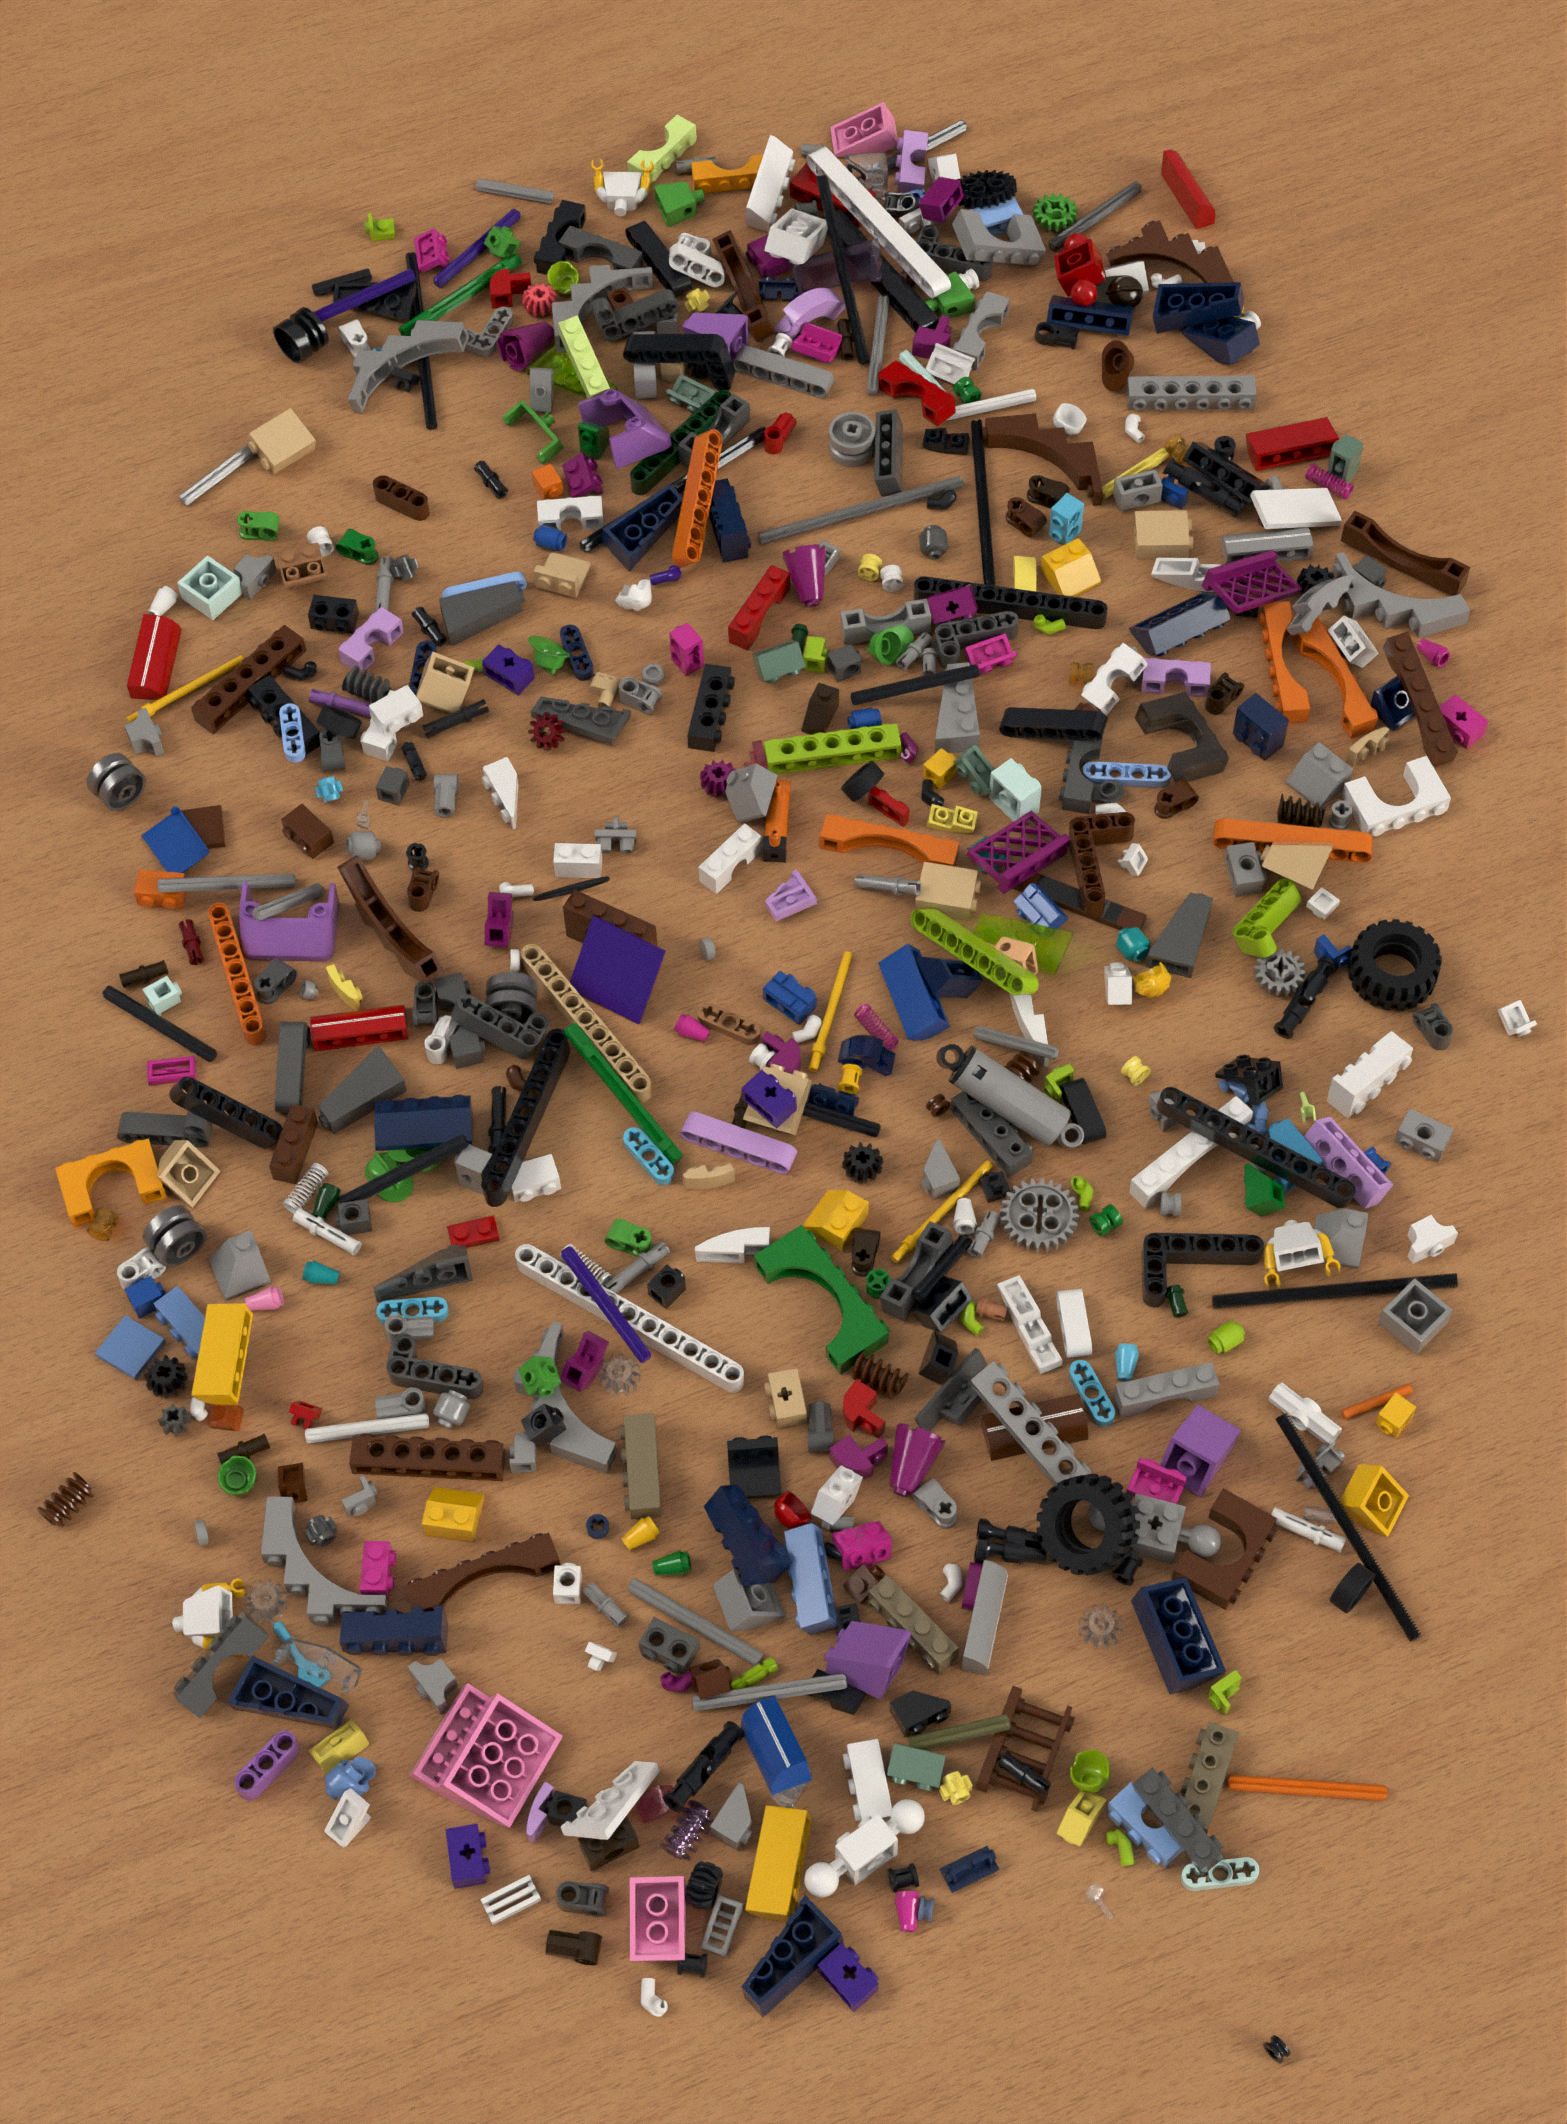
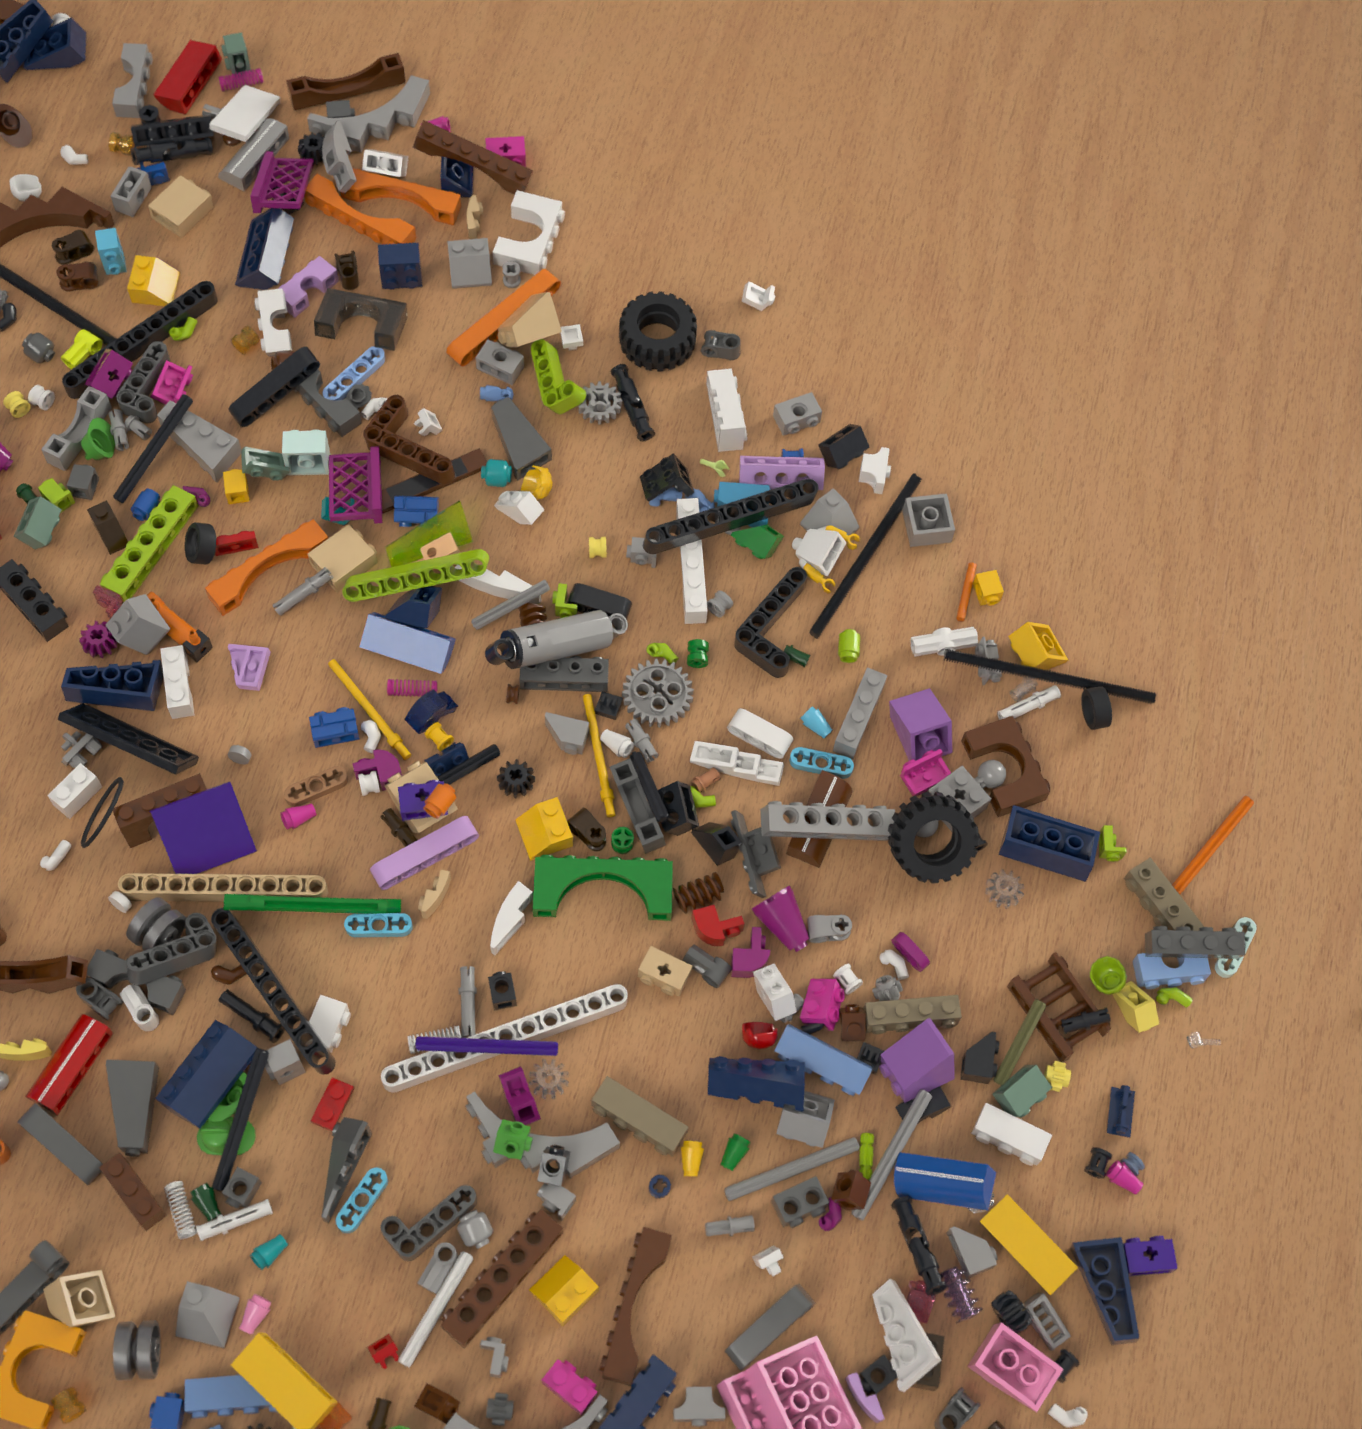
camera: 60 degrees left, 5 degrees up
(140, 1267) = (138, 1395): white piece -> none
(215, 1112) = (50, 1233): black beam -> none
(417, 1327) = (378, 1210): light grey piece -> none
(499, 920) = (74, 887): magenta brick -> none
(546, 1691) = (770, 1326): none -> dark grey beam
(567, 1594) = (697, 1253): white brick -> none
(628, 1237) = (436, 990): bright green piece -> none
(651, 862) = (128, 738): none -> black tile
(687, 818) = (116, 686): none -> dark blue wedge
(755, 1466) = (702, 1035): black bracket -> none
(773, 1106) = (440, 800): none -> orange brick
(865, 1849) = (1064, 1174): white brick -> none
(903, 1551) = (847, 979): none -> white bush
(919, 1588) = (887, 988): none -> light grey gear
(929, 796) = (250, 511): black arm -> none
(957, 820) = (284, 512): light yellow slope -> none
(966, 570) = (84, 345): none -> neon yellow piece
(985, 1618) = (945, 963): light grey brick -> none
(1017, 1548) = (901, 899): black piece -> none
(1024, 573) = (126, 311): light yellow slope -> none
(1145, 465) = (111, 180): light yellow axle -> none
(1175, 799) = (404, 361): reddish brown piece -> none
(1182, 572) = (227, 216): white slope -> none
(1191, 392) = (81, 101): light grey brick -> none
(1210, 888) = (493, 393): none -> medium blue arm
(1230, 421) = (129, 98): none -> light grey arch
(1300, 812) = (487, 294): dark brown piece -> none
(1326, 949) = (608, 361): blue bracket -> none
(1425, 1195) = (844, 446): none -> black brick

